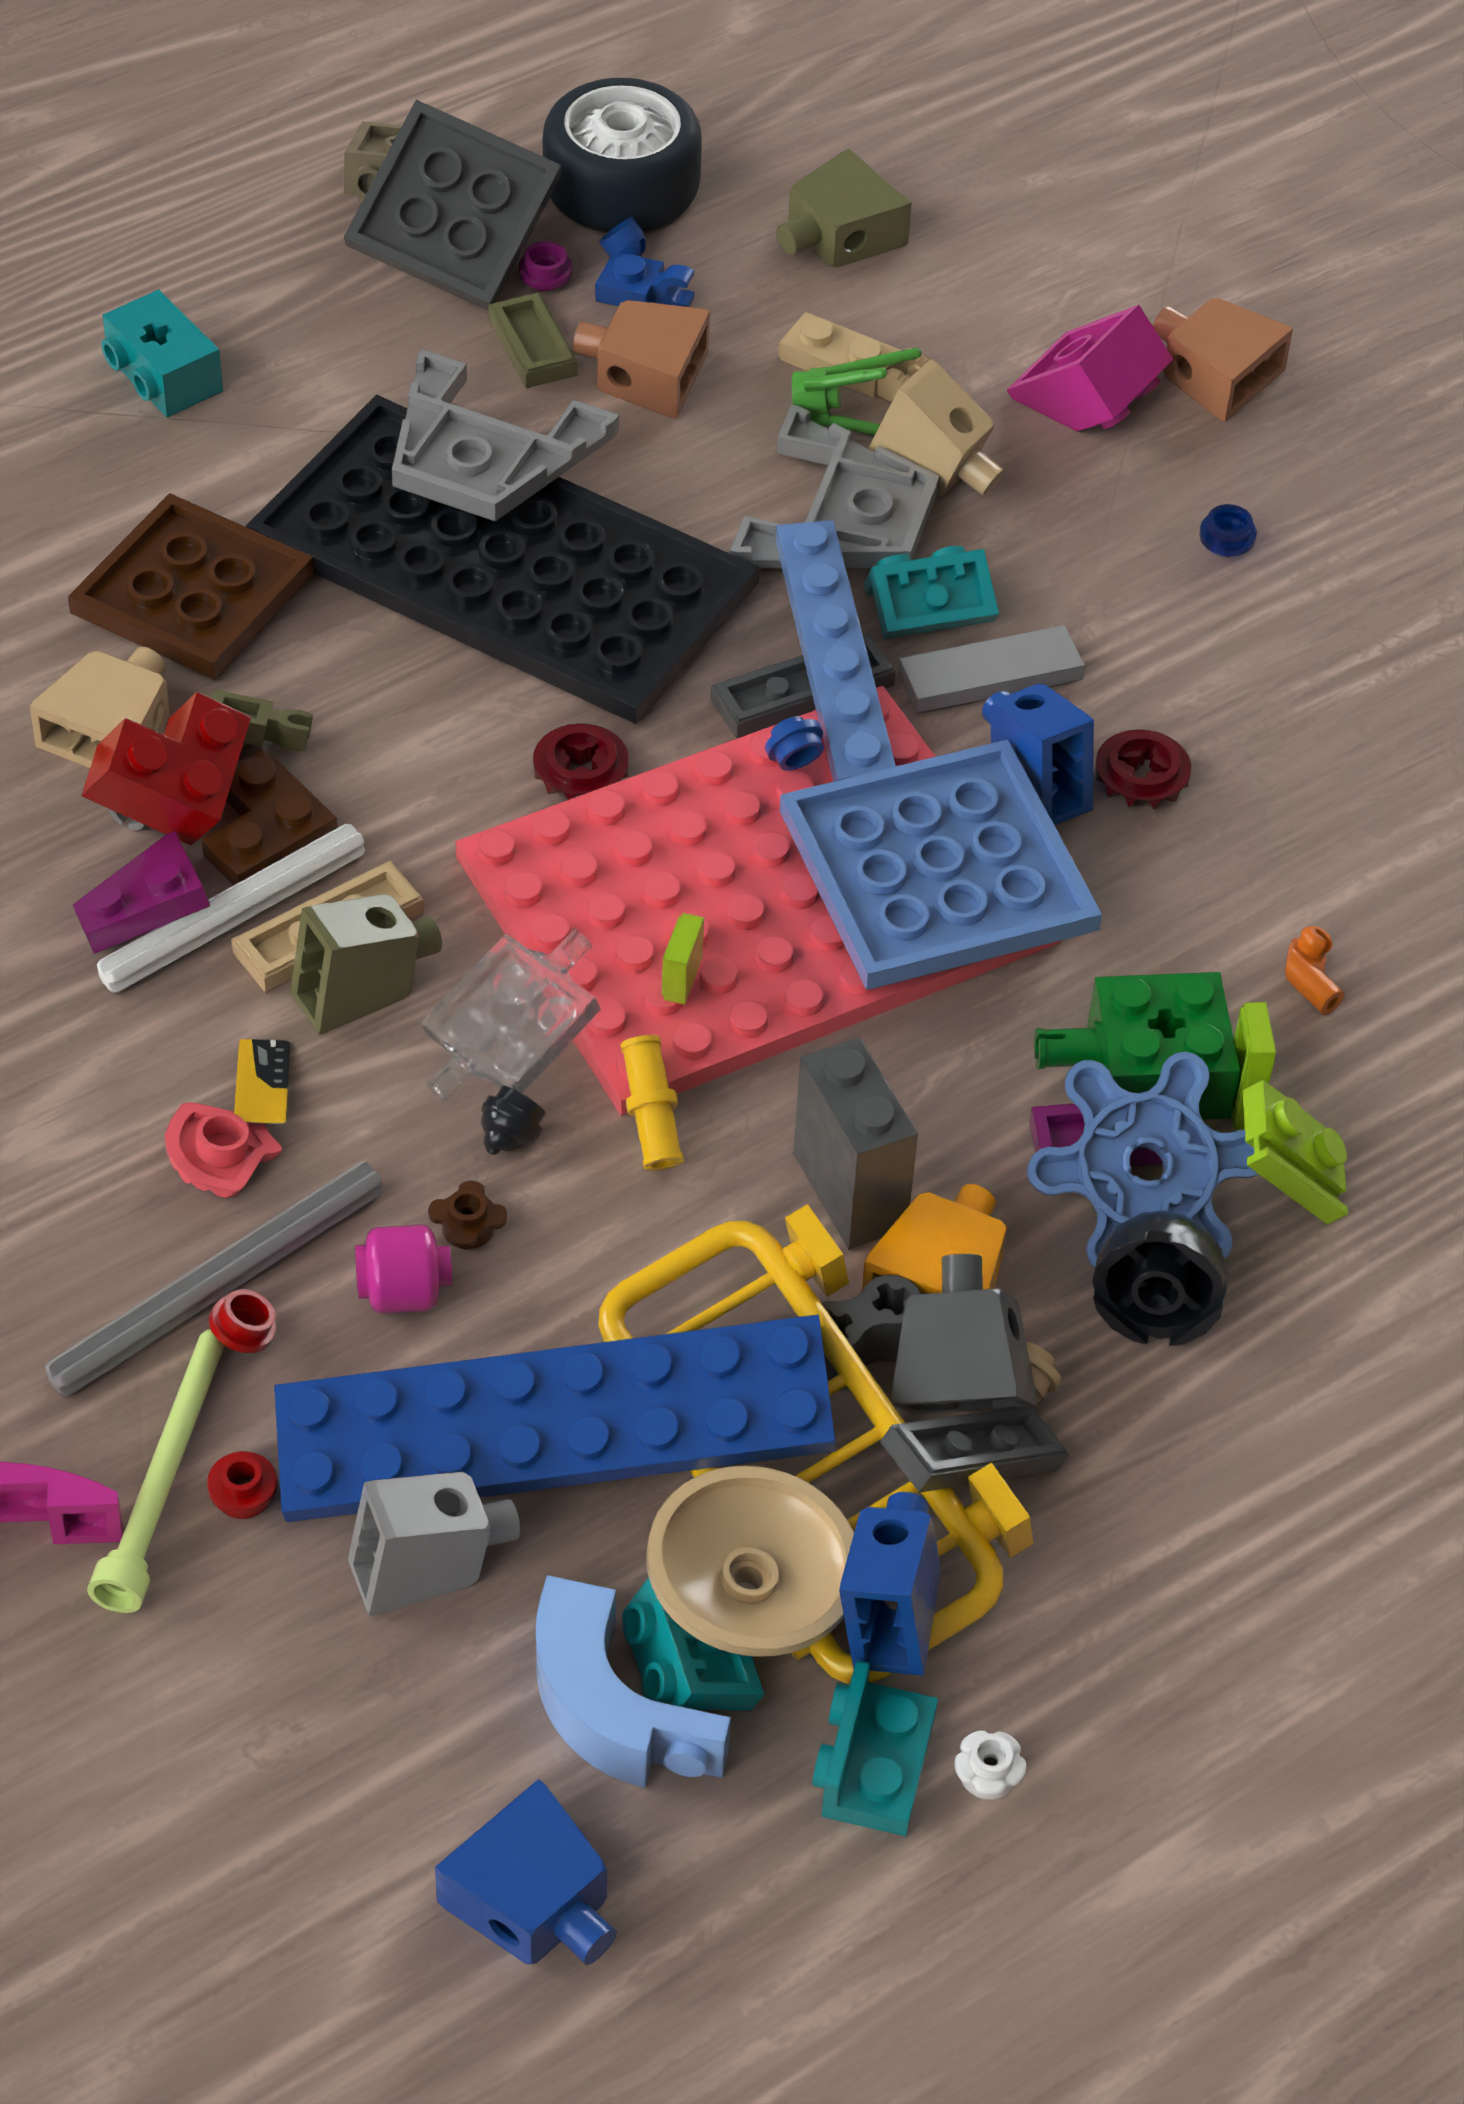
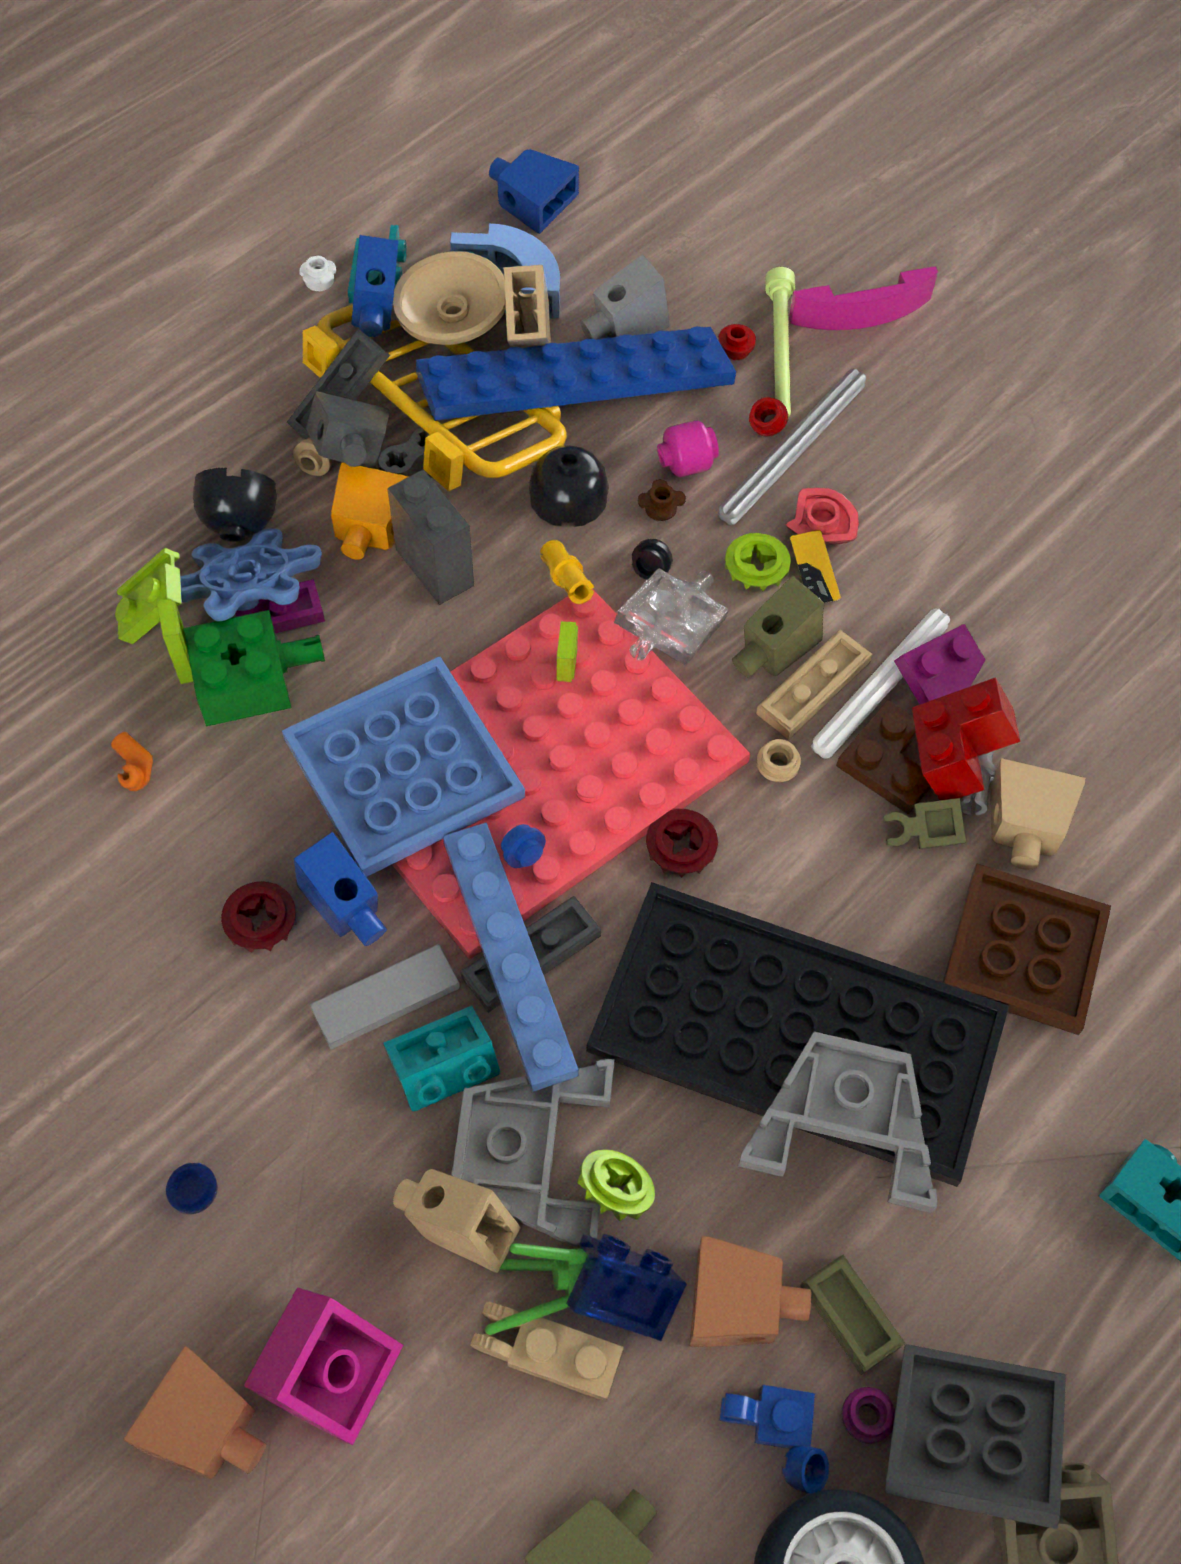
camera: 170 degrees right, 10 degrees up
(326, 1087) = (768, 551): none -> lime gear
(418, 831) = (778, 750): none -> tan plate
(603, 1244) = (568, 486): none -> black cylinder
(615, 1515) = (526, 313): none -> tan torso
(733, 447) = (616, 1169): none -> lime gear
(764, 369) = (626, 1287): none -> clear blue bracket

